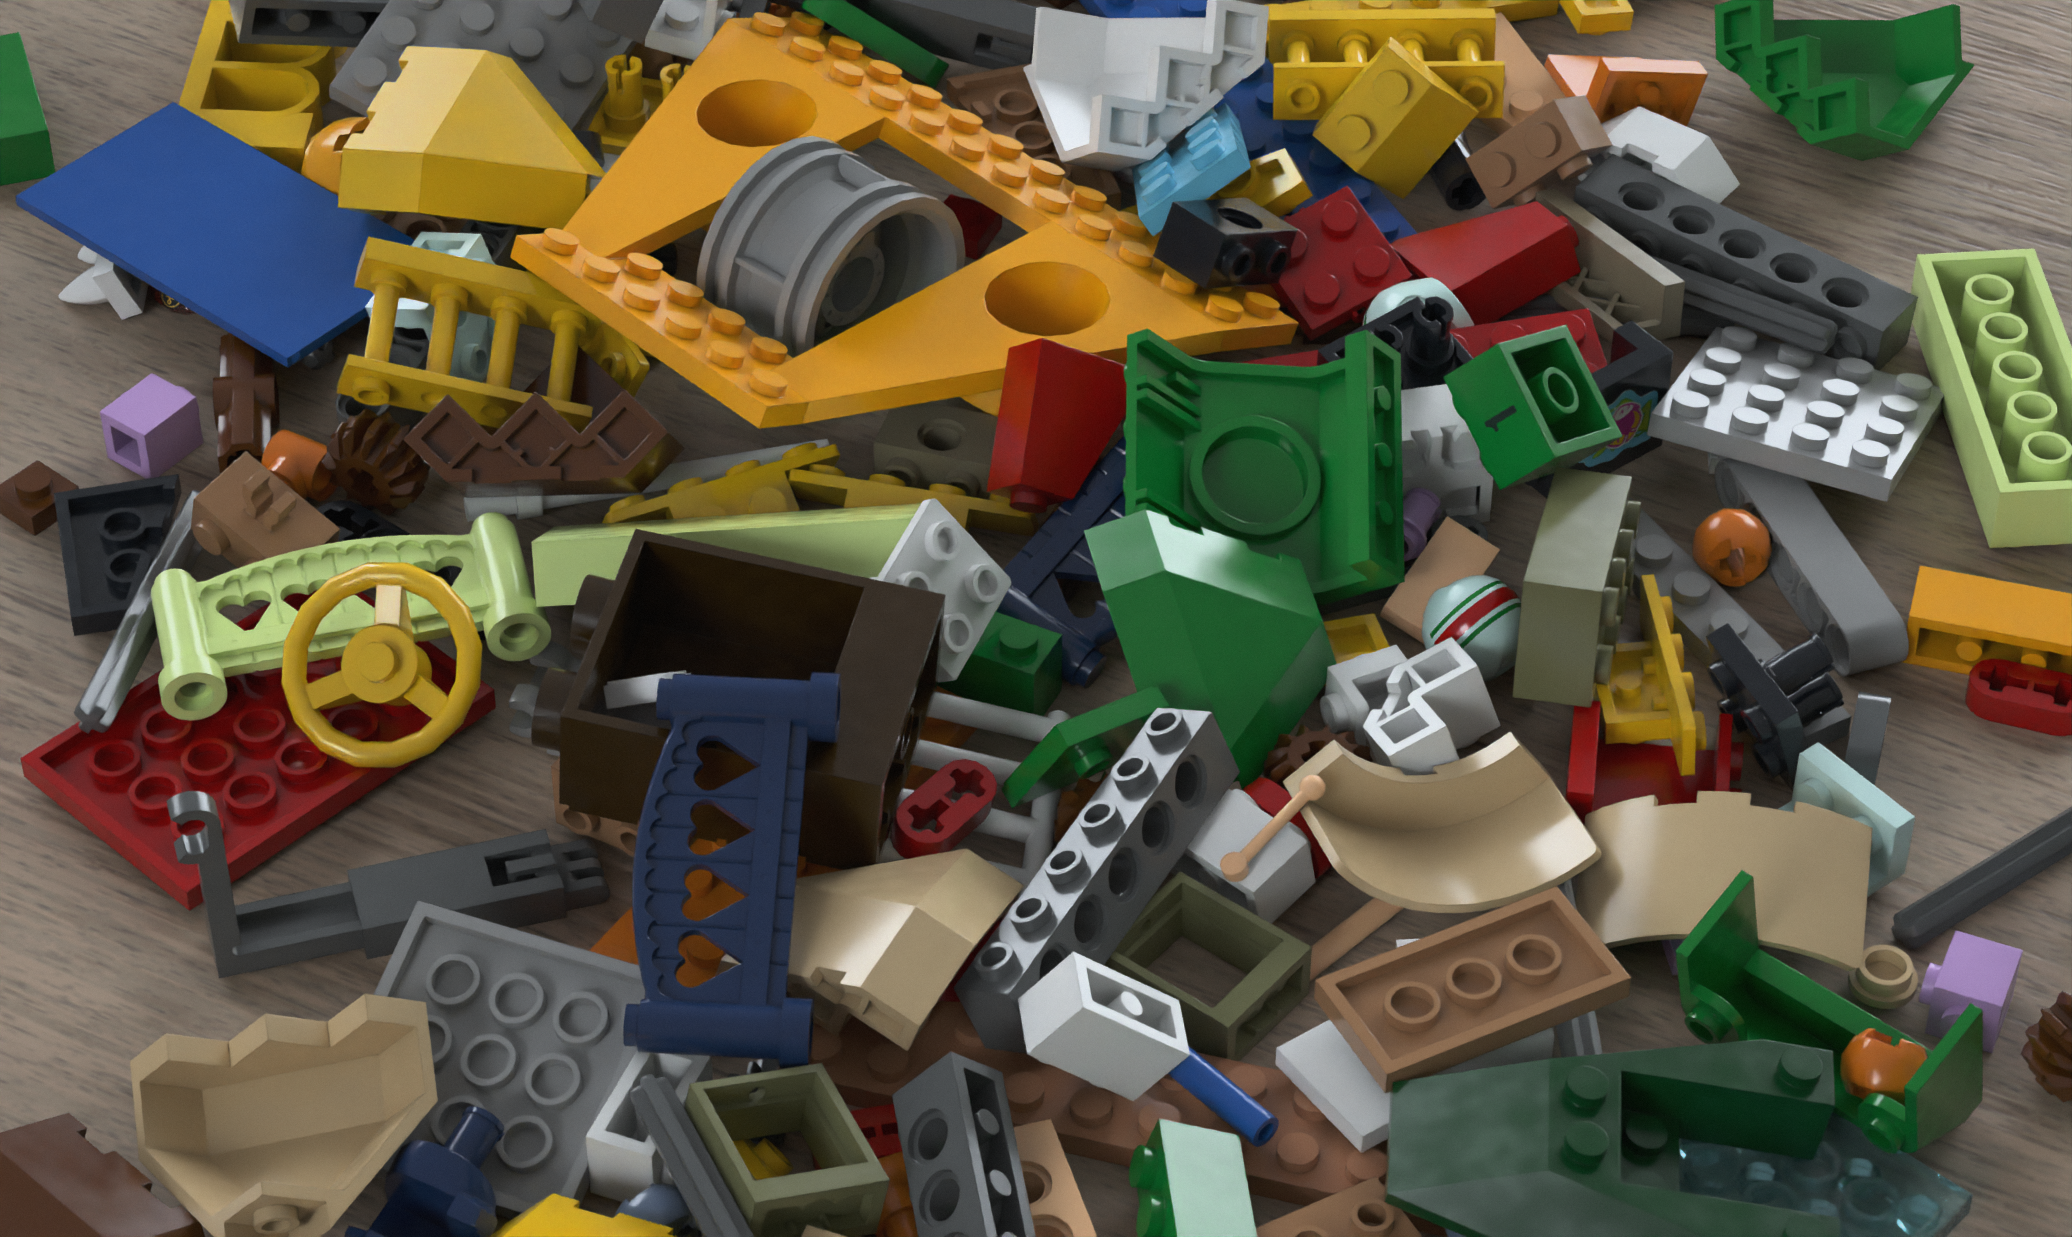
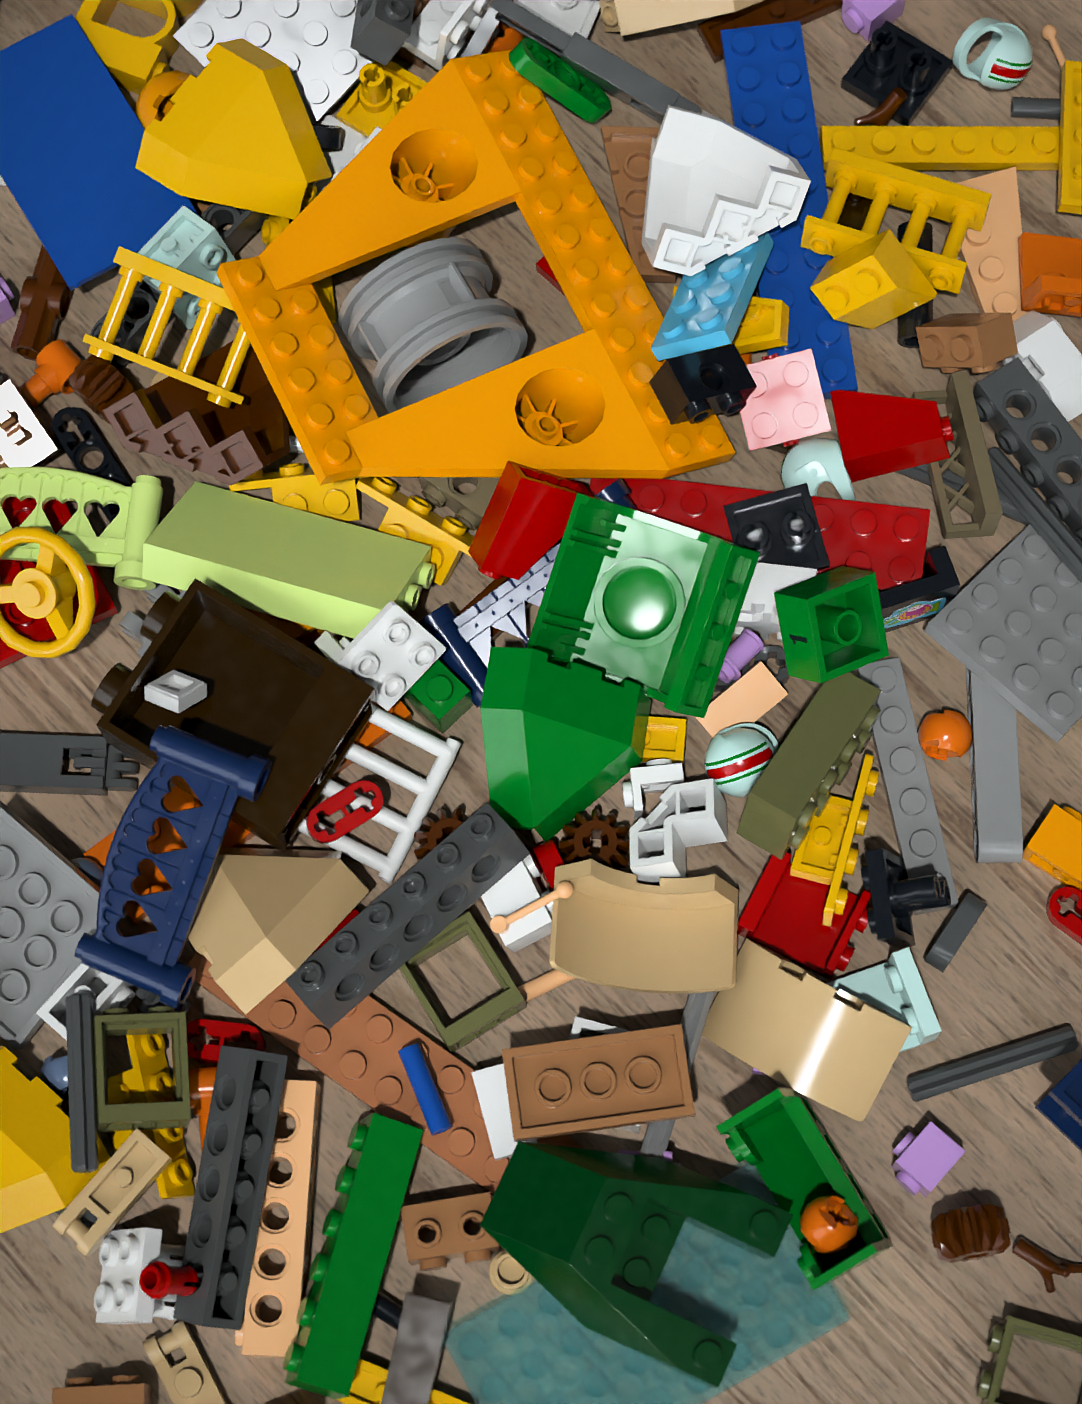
camera: 25 degrees right, 30 degrees up
(1082, 746) = (443, 799): green plate -> none
(1103, 1026) = (361, 1040): white brick -> none
(1884, 978) = (881, 1125): tan plate -> none

